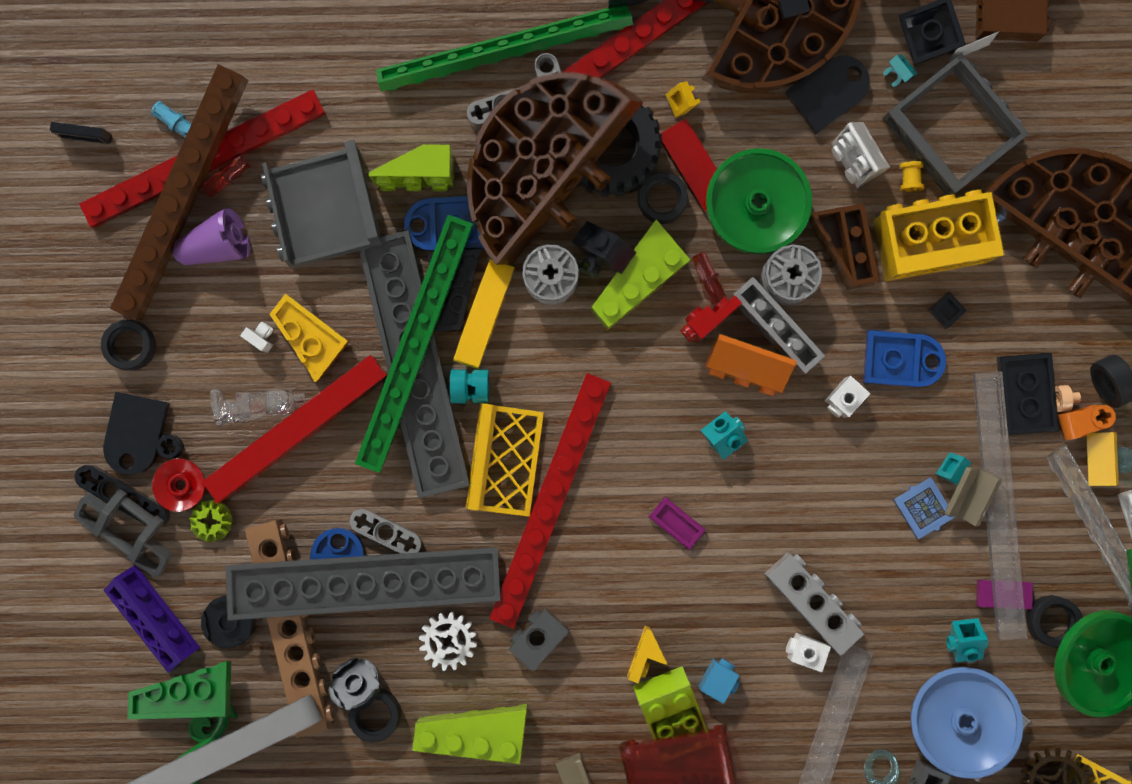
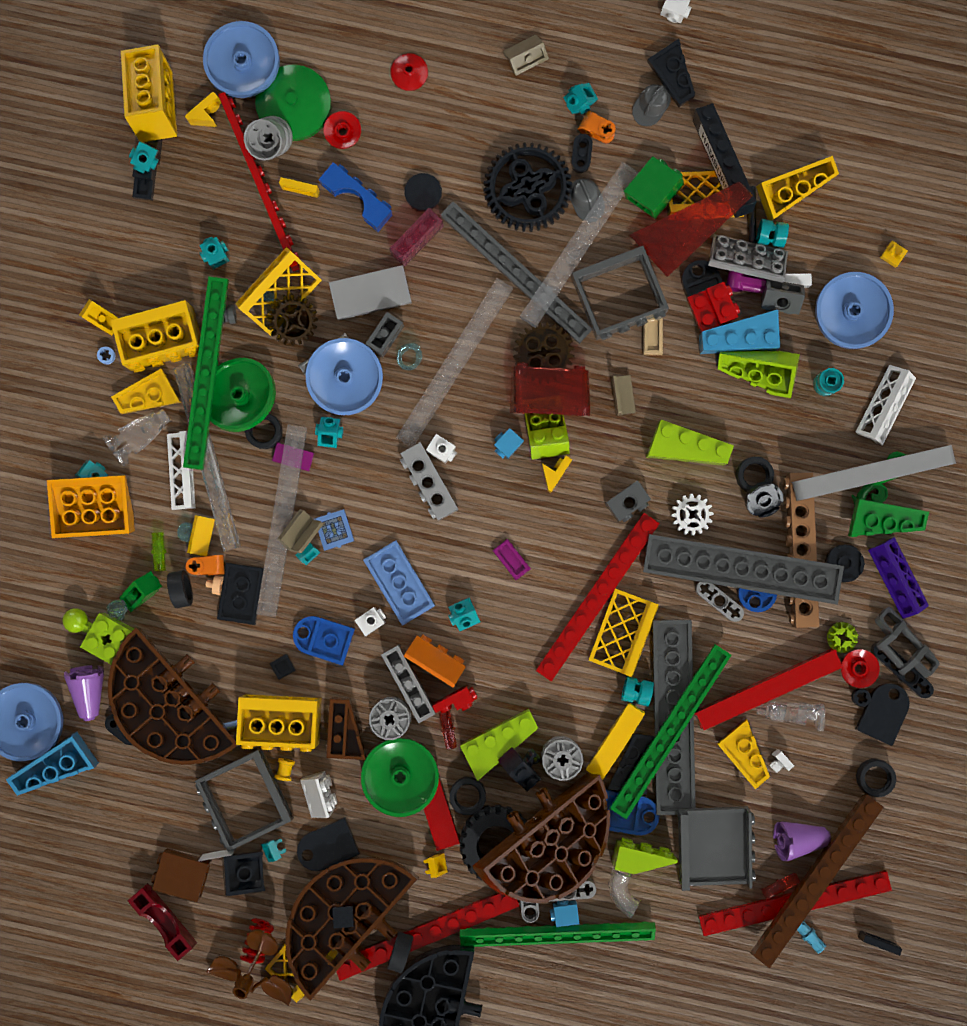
camera: 170 degrees left, 0 degrees up
(432, 116) = (620, 894): none -> clear cylinder
(500, 76) = (565, 913): none -> dark azure brick
(820, 457) = (399, 582): none -> medium blue tile

